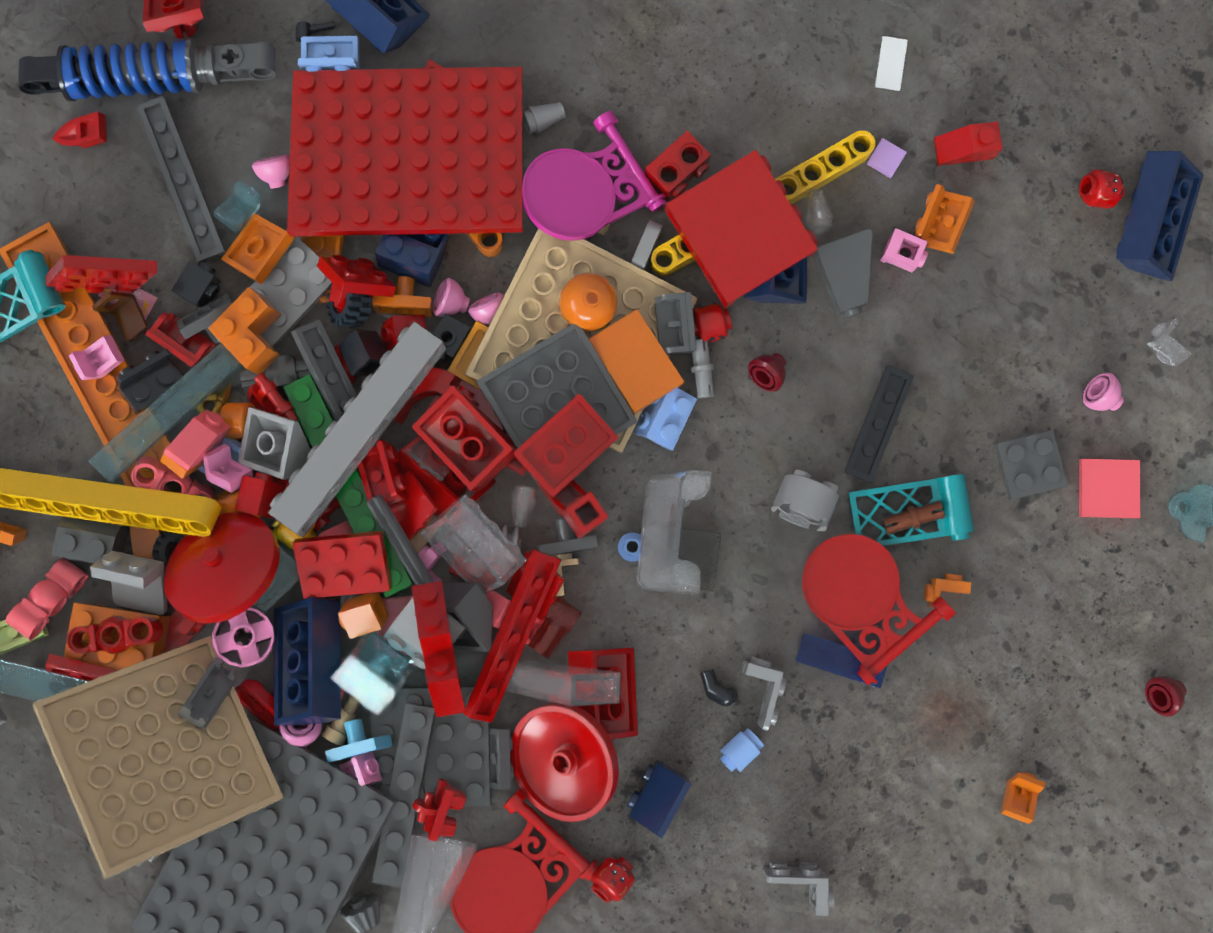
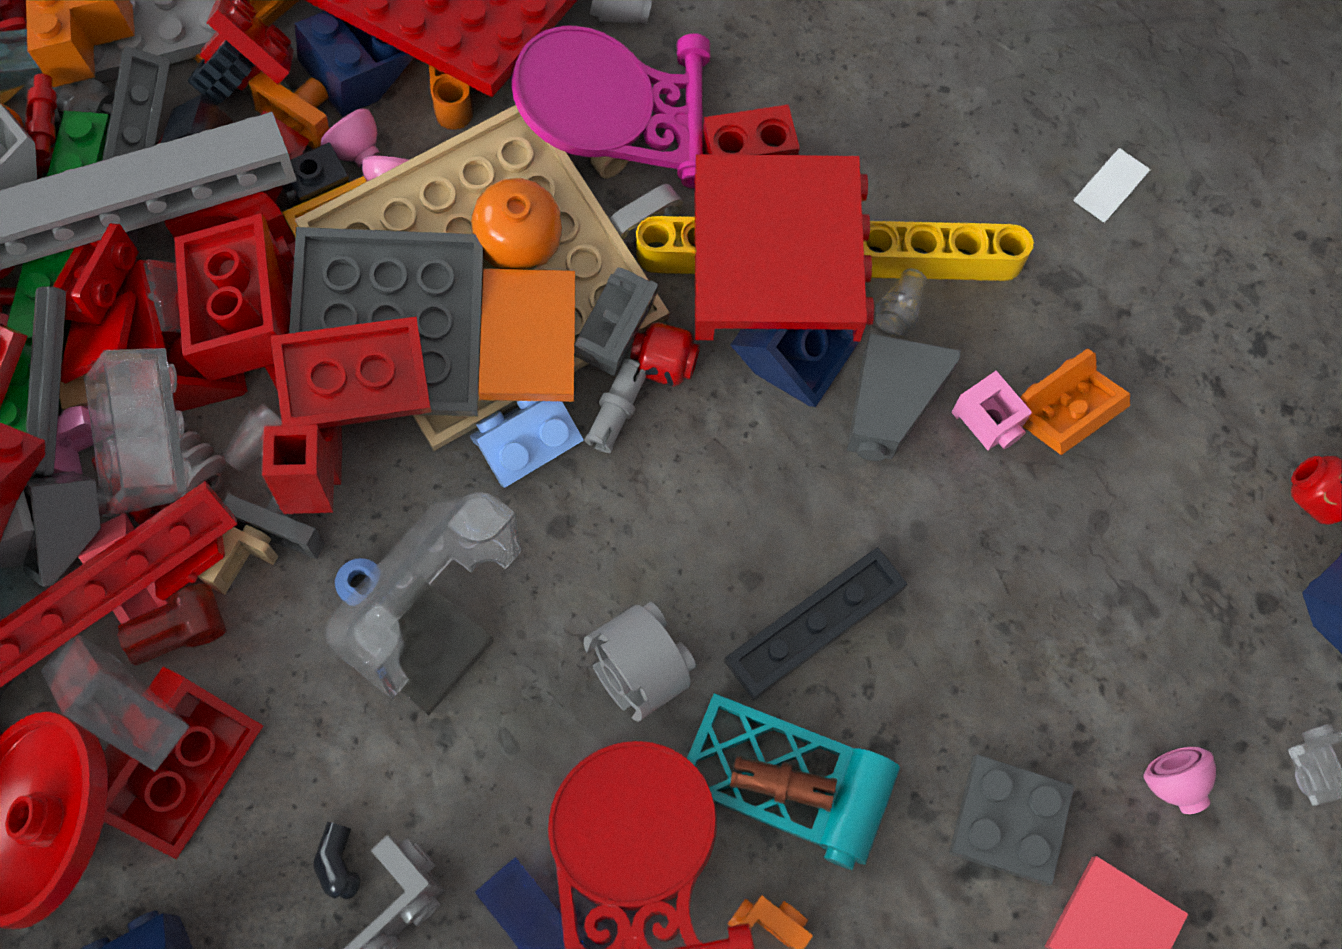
camera: 30 degrees right, 15 degrees down
(768, 371) = (703, 459): dark red brick -> none
(886, 158) = (1037, 289): lavender tile -> none
(969, 144) = (1164, 330): red slope -> none

